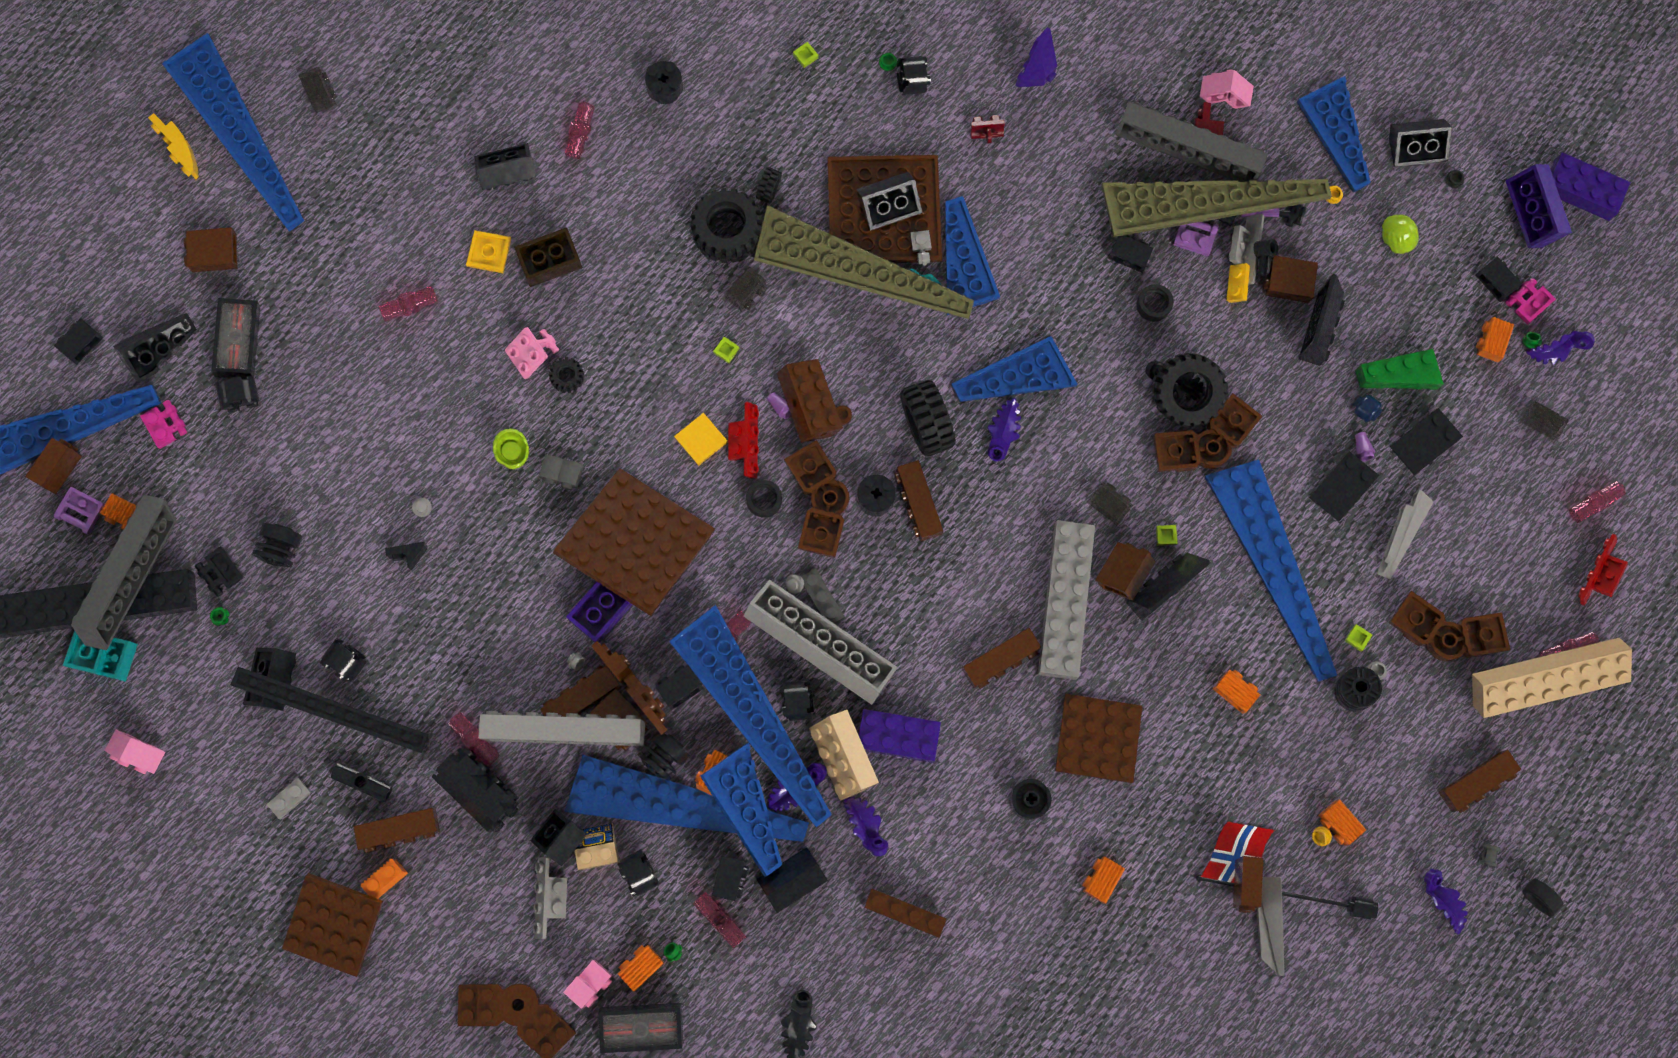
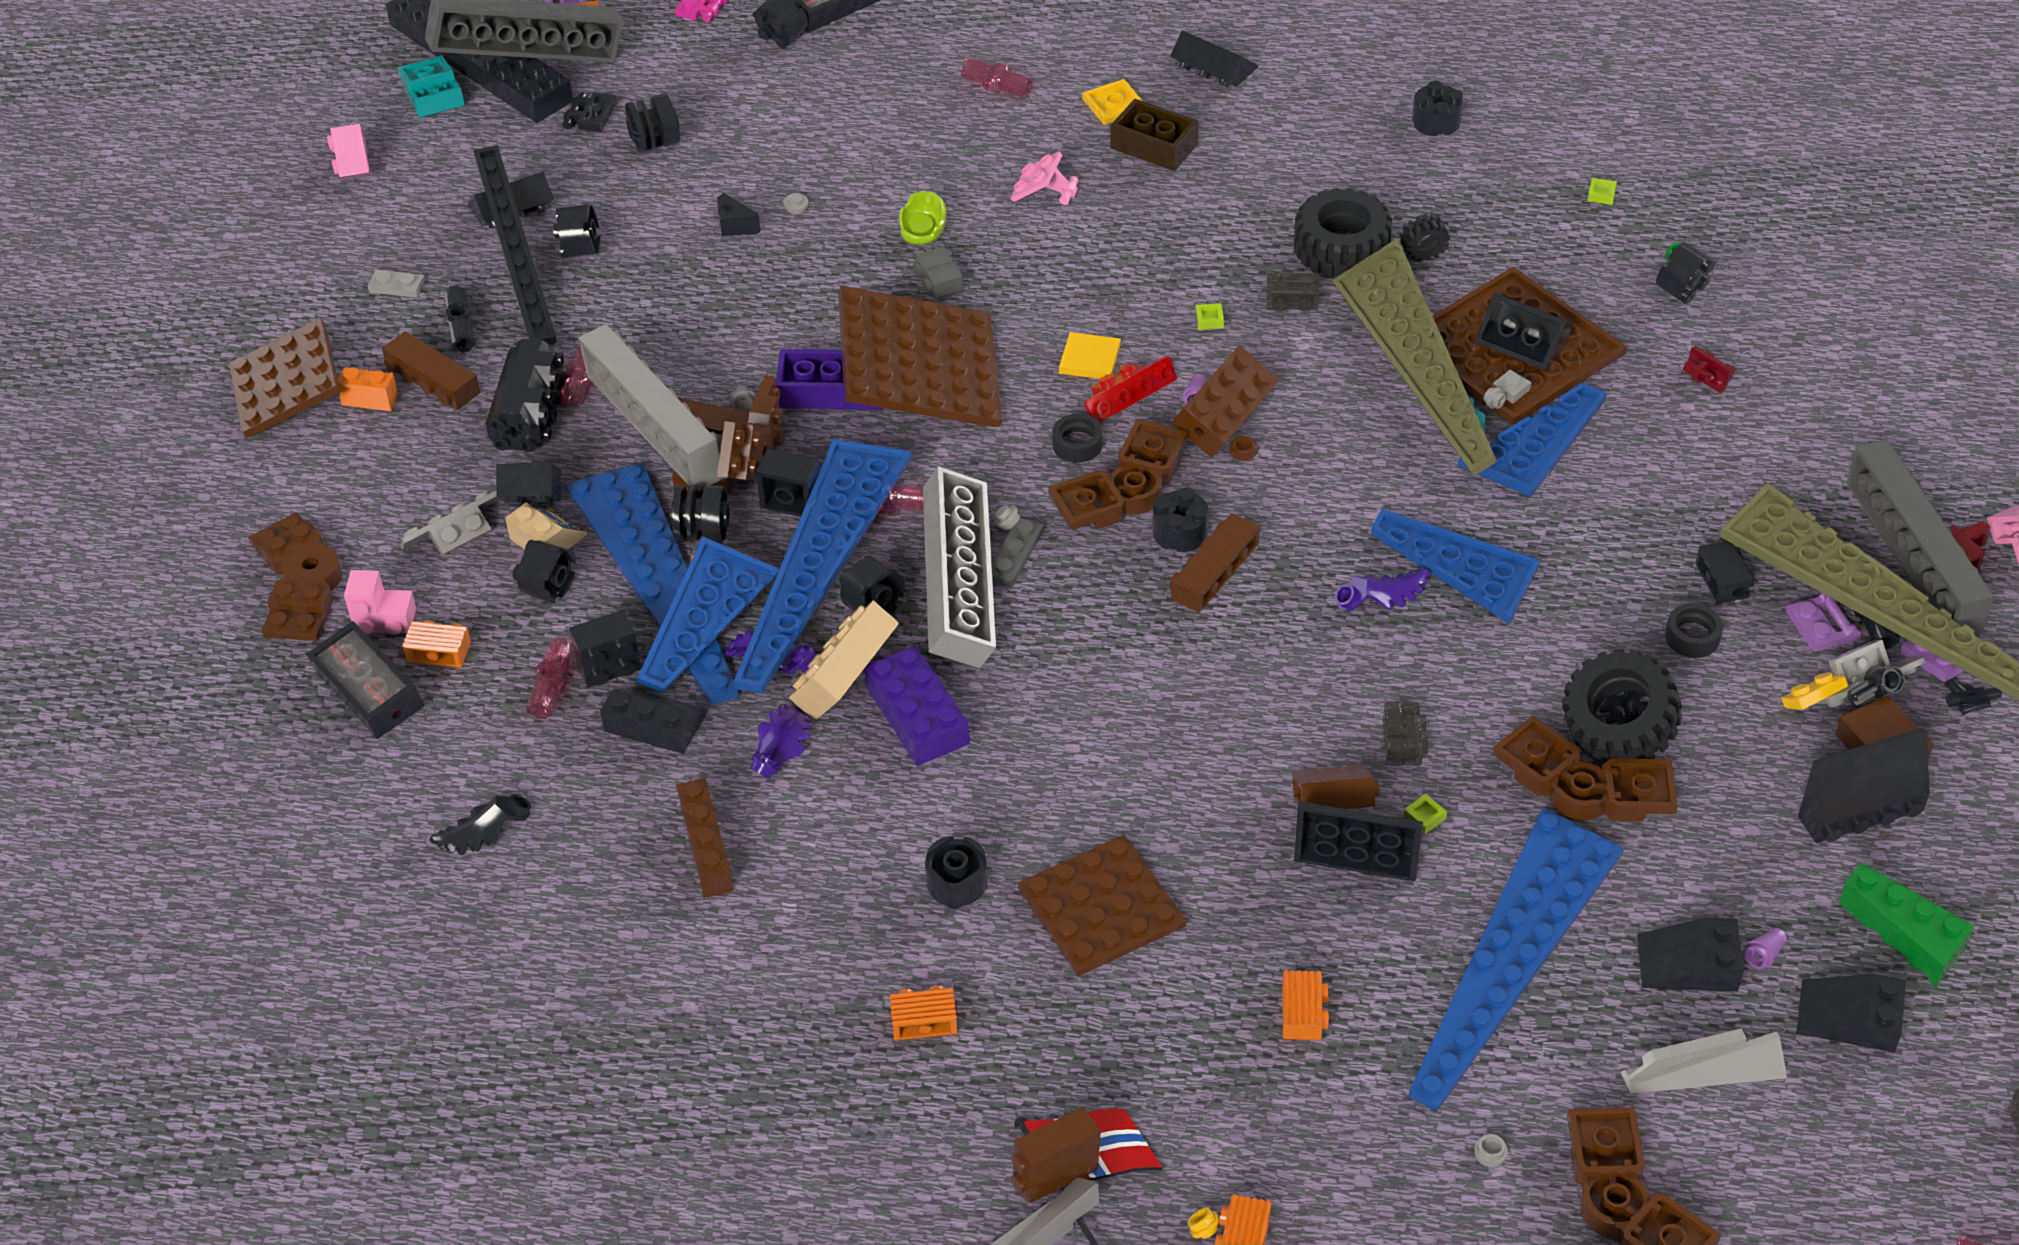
camera: 60 degrees right, 30 degrees down
(219, 611) = (543, 135): green plate -> none
(566, 364) = (1046, 210): black tyre -> none
(579, 130) = (1313, 86): clear pink piece -> none
(672, 952) = (478, 661): green plate -> none
(927, 418) = (1311, 490): black tyre -> none
(1001, 658) = (1105, 745): reddish brown brick -> none
(1041, 64) = (1830, 347): dark purple wedge -> none
(1066, 600) = (1238, 762): light grey brick -> none
(1358, 637) = (1512, 1099): lime plate -> none
(1366, 681) = (1439, 1129): black wheel -> none
(1367, 408) = (1819, 917): dark blue head -> none

